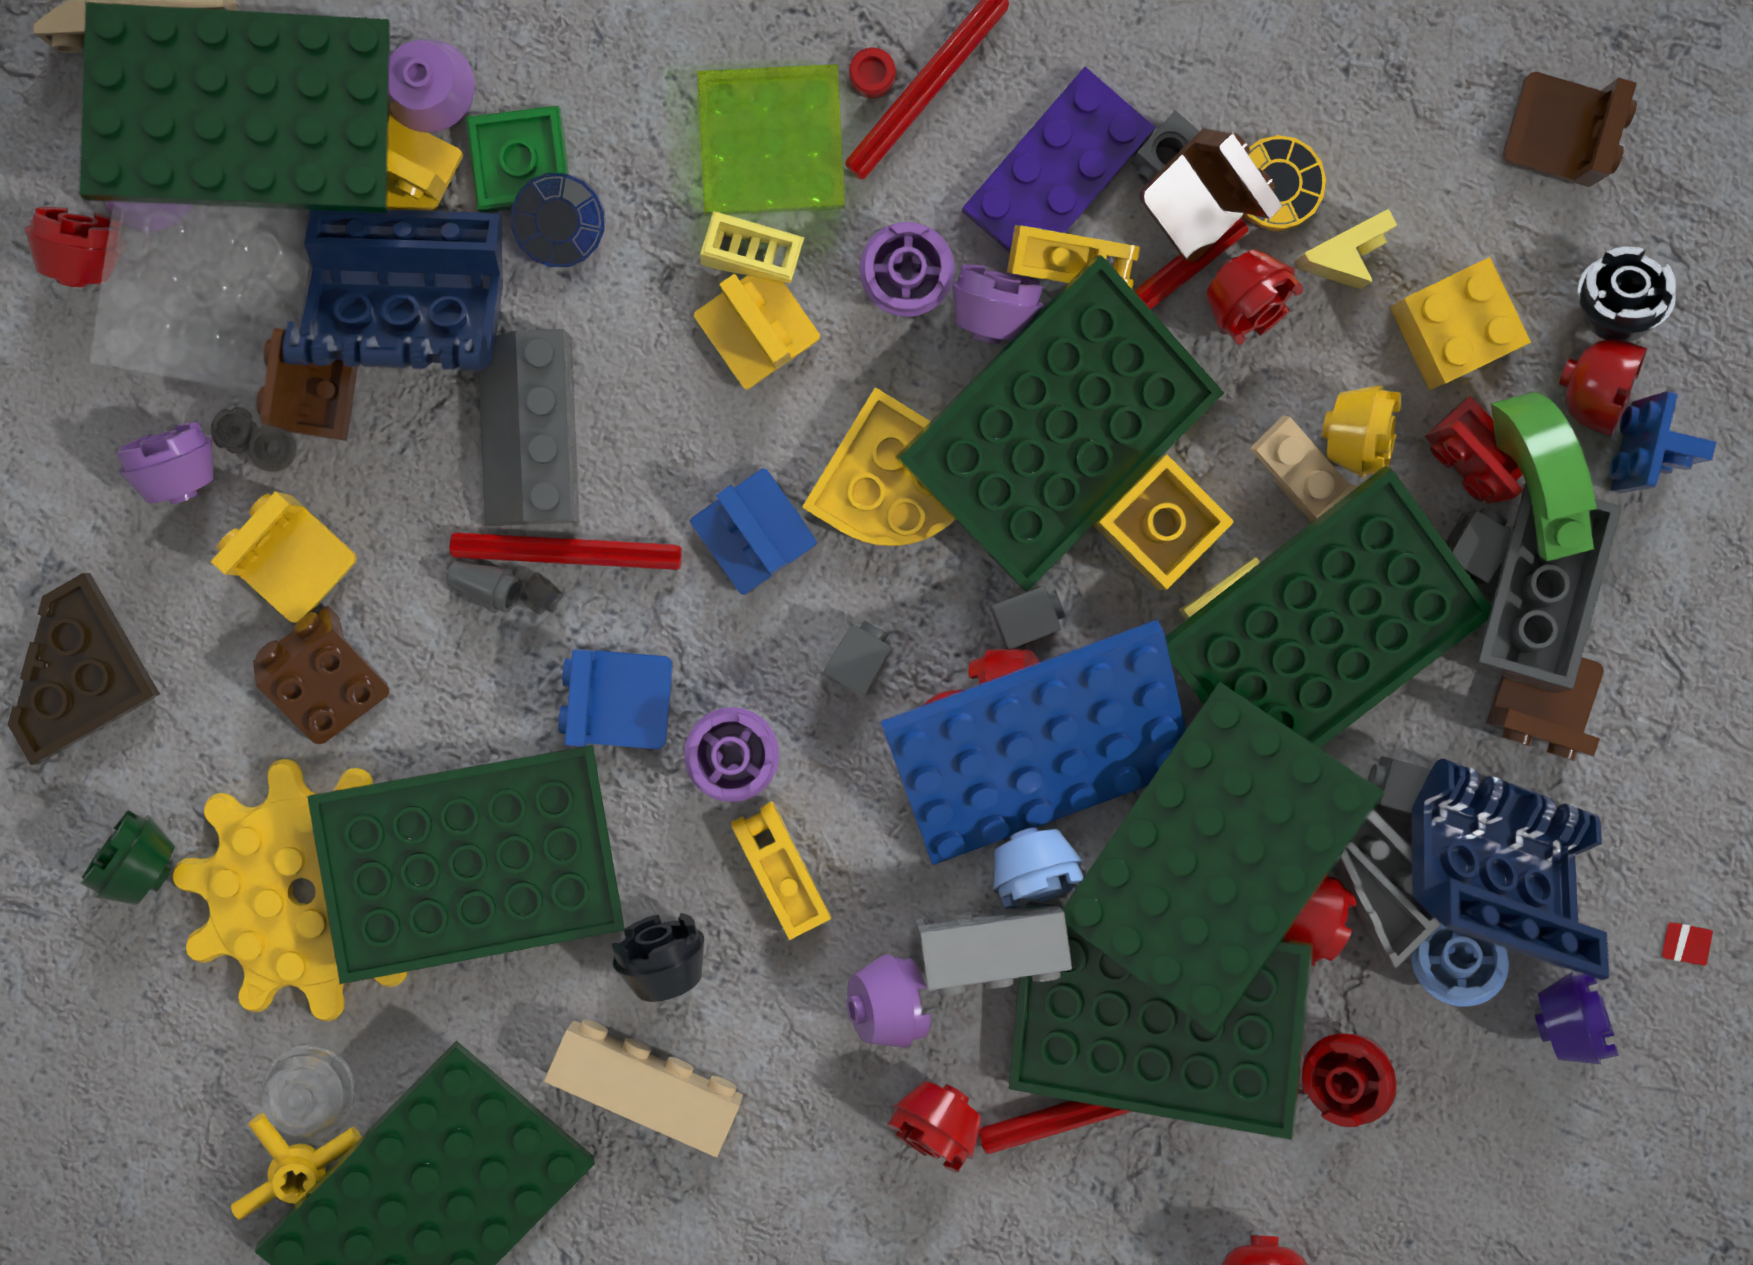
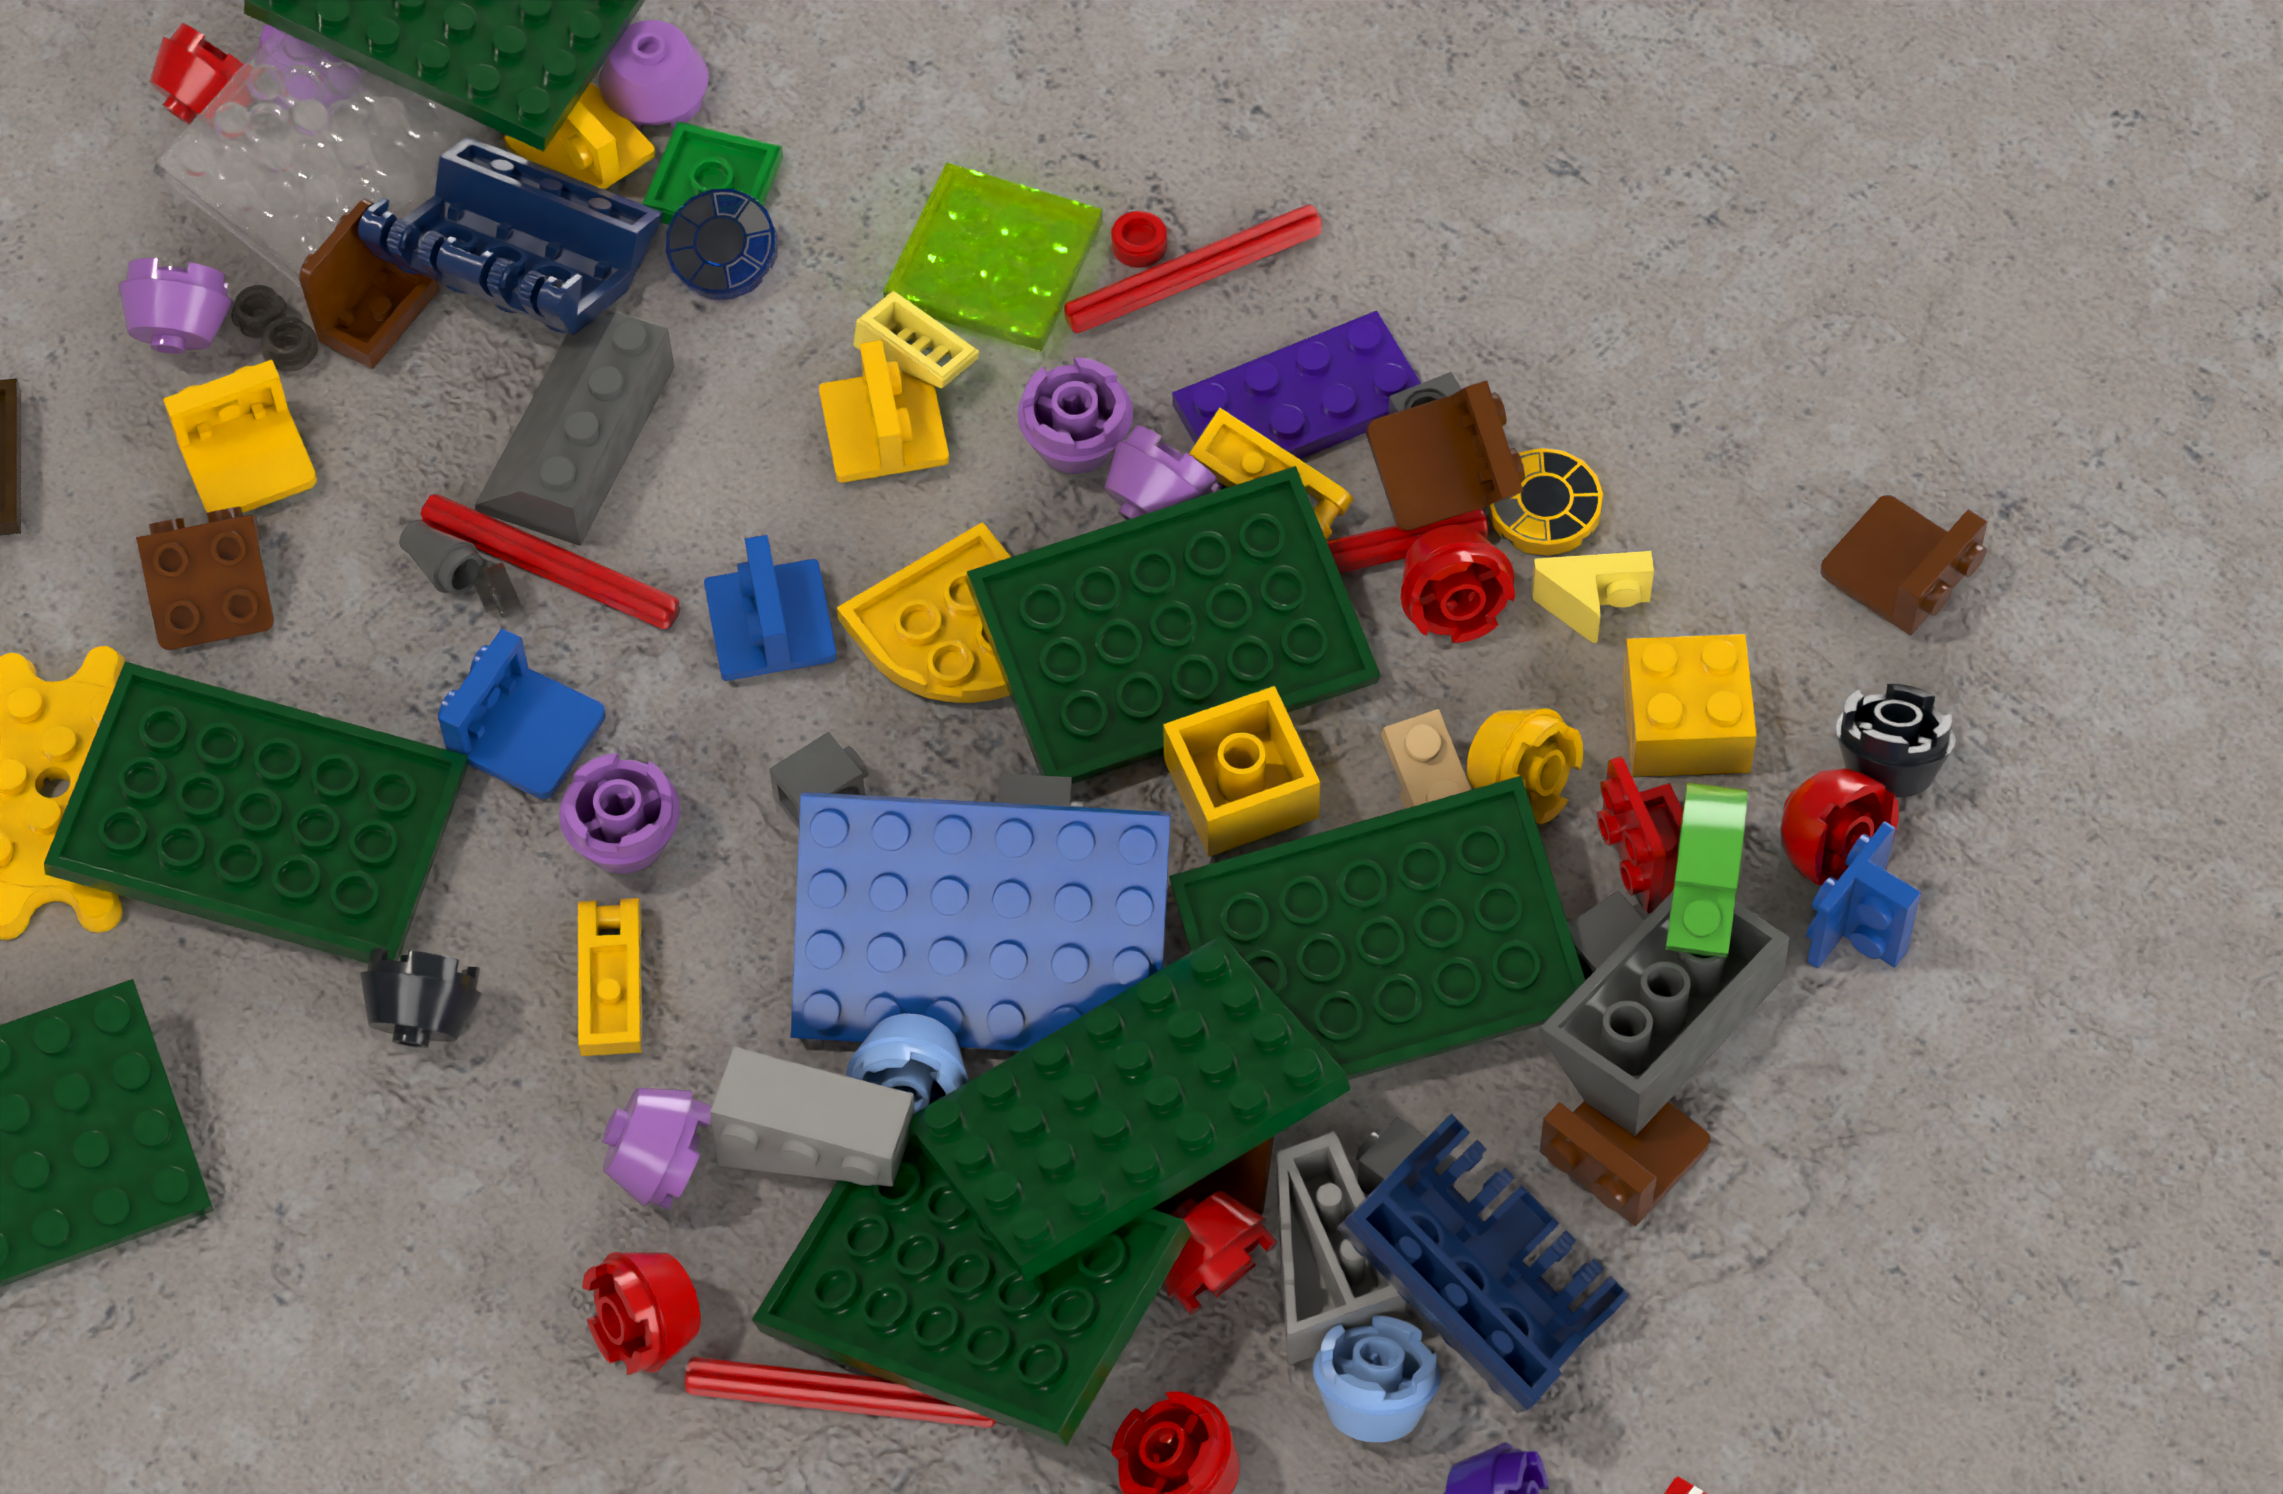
camera: 25 degrees right, 30 degrees down
(644, 1087) = (320, 1140): tan brick -> none

